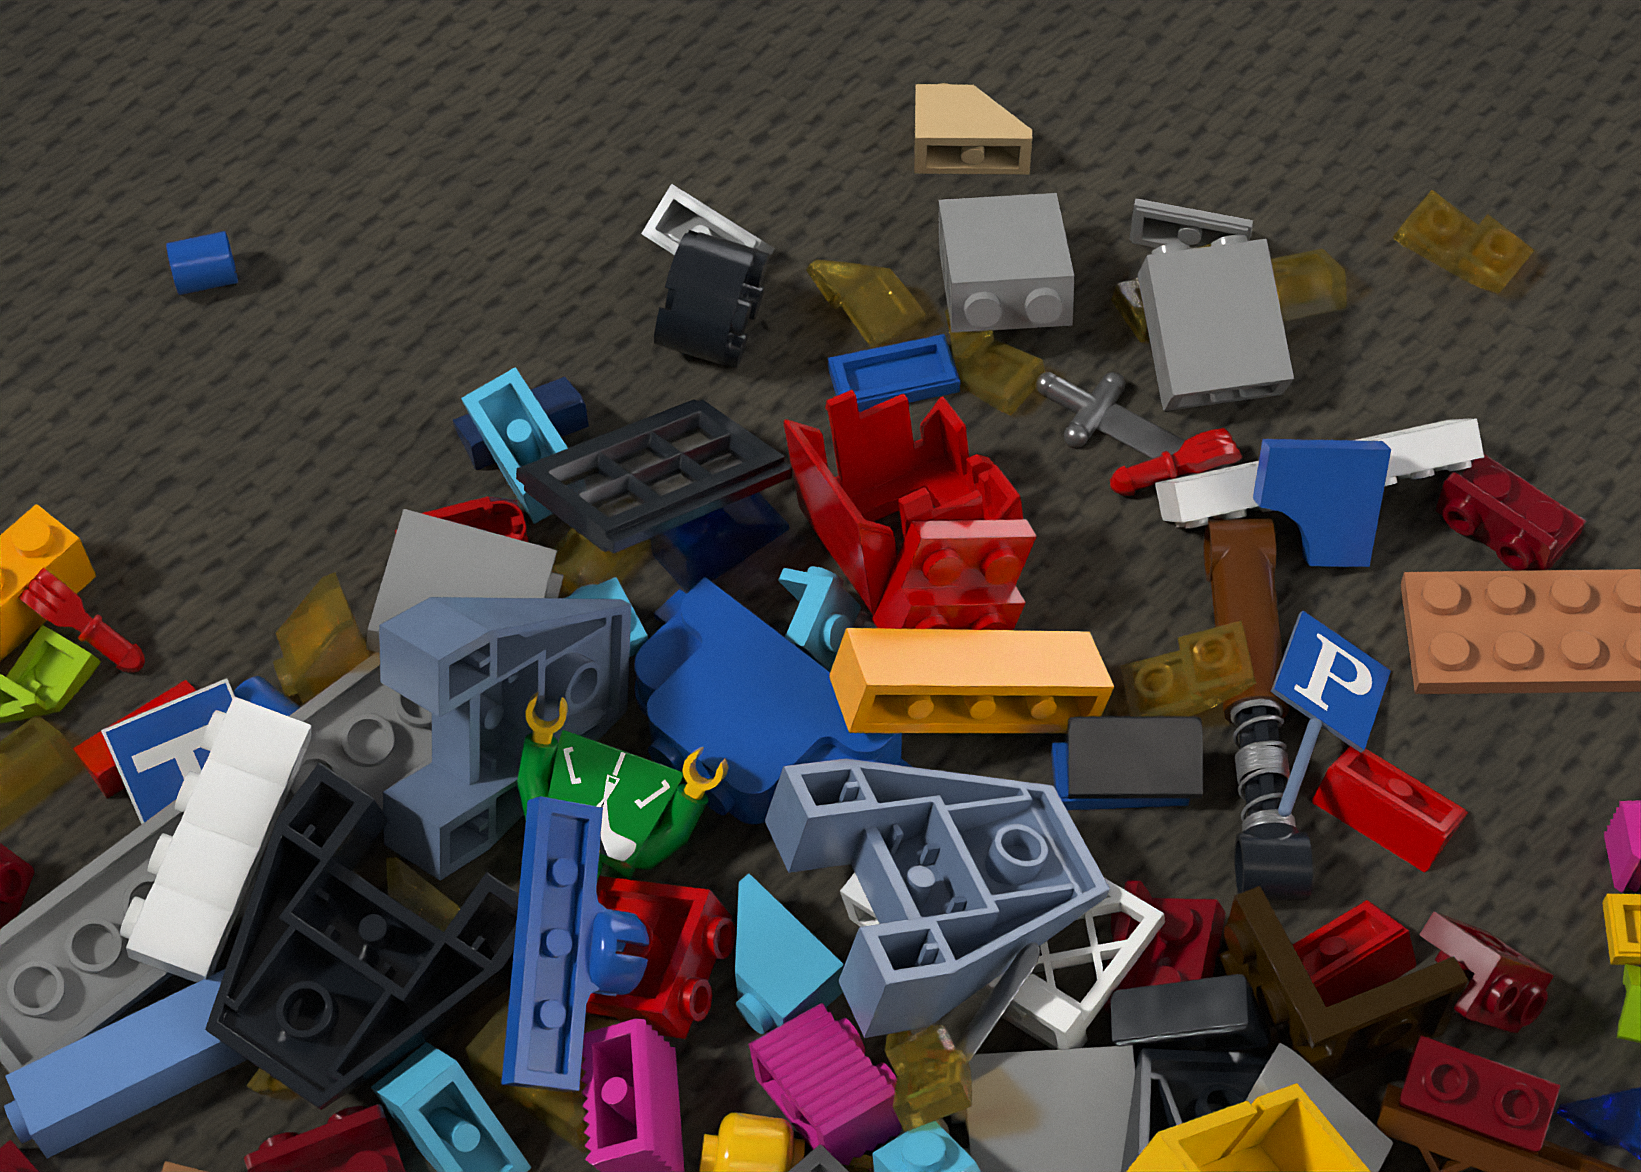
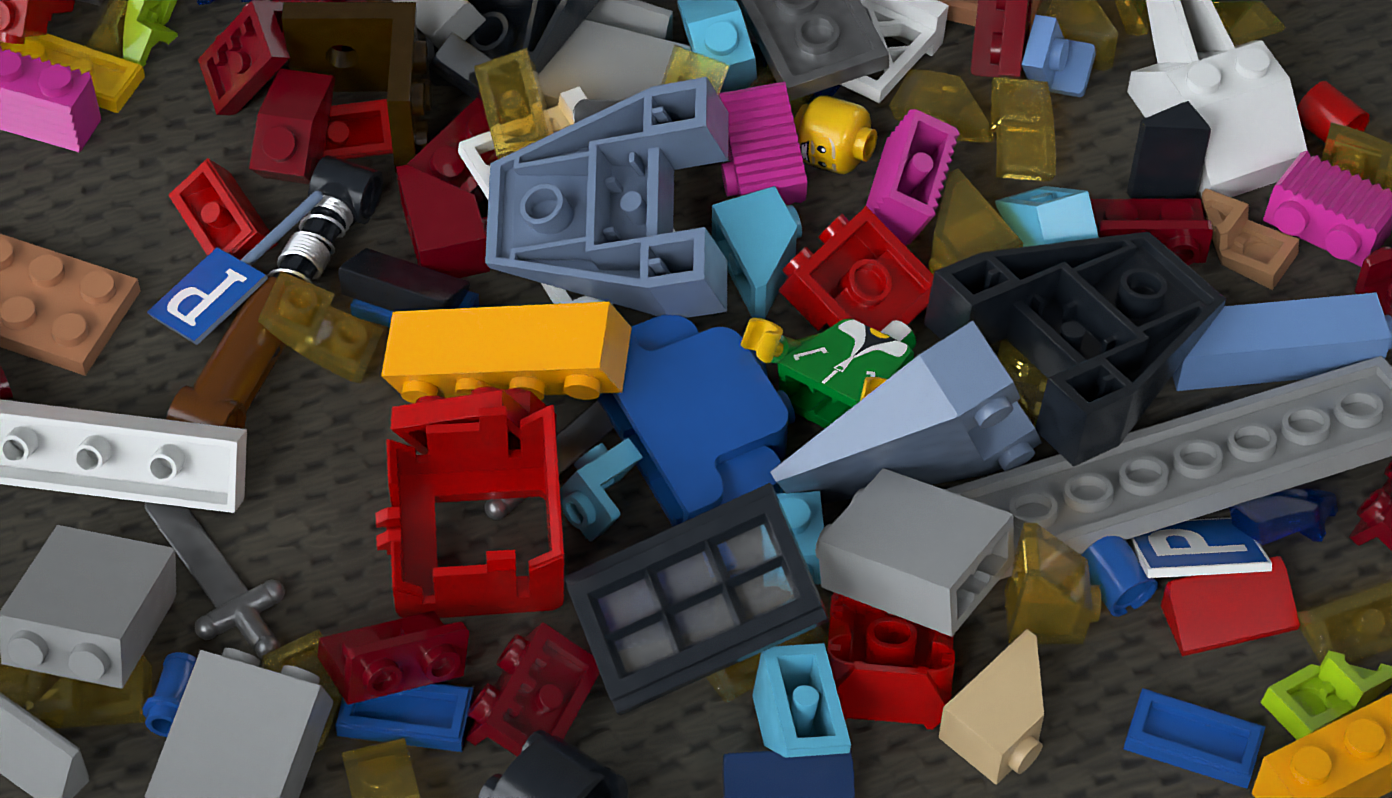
camera: 160 degrees left, 5 degrees down
(65, 609) = (1294, 714): red piece -> none
(98, 826) = (1284, 514): none -> clear blue slope
(160, 598) = (1194, 738): none -> blue tile
(218, 842) = (1182, 437): white brick -> none
(349, 531) = (999, 713): none -> tan slope
(562, 946) = (924, 243): blue plate -> none
(784, 387) = (538, 690): none -> dark red bracket
(929, 367) = (394, 656): none -> dark red bracket
(1096, 300) = (162, 707): none -> blue pin
(1117, 971) = (513, 102): none -> clear yellow slope
(1138, 843) = (442, 224): none -> dark red slope
(1195, 456) = (182, 519): red piece -> none
(1329, 492) = (109, 398): blue tile -> none
(1370, 890) = (292, 126): none -> dark red slope

